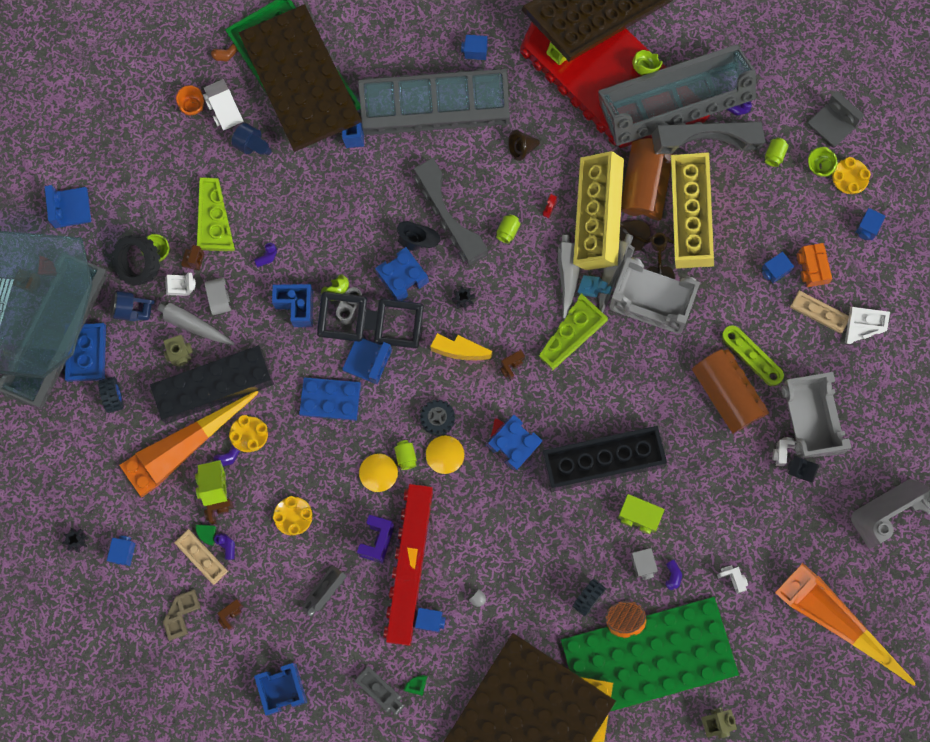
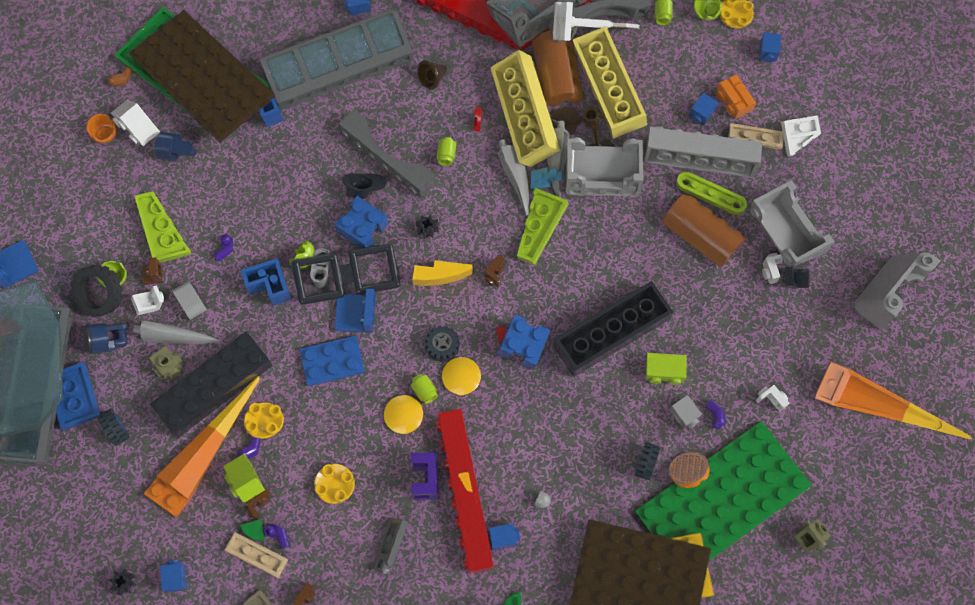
camera: 25 degrees left, 5 degrees down
(665, 137) = (565, 21): none -> white piece
(758, 312) = (703, 152): none -> light grey brick

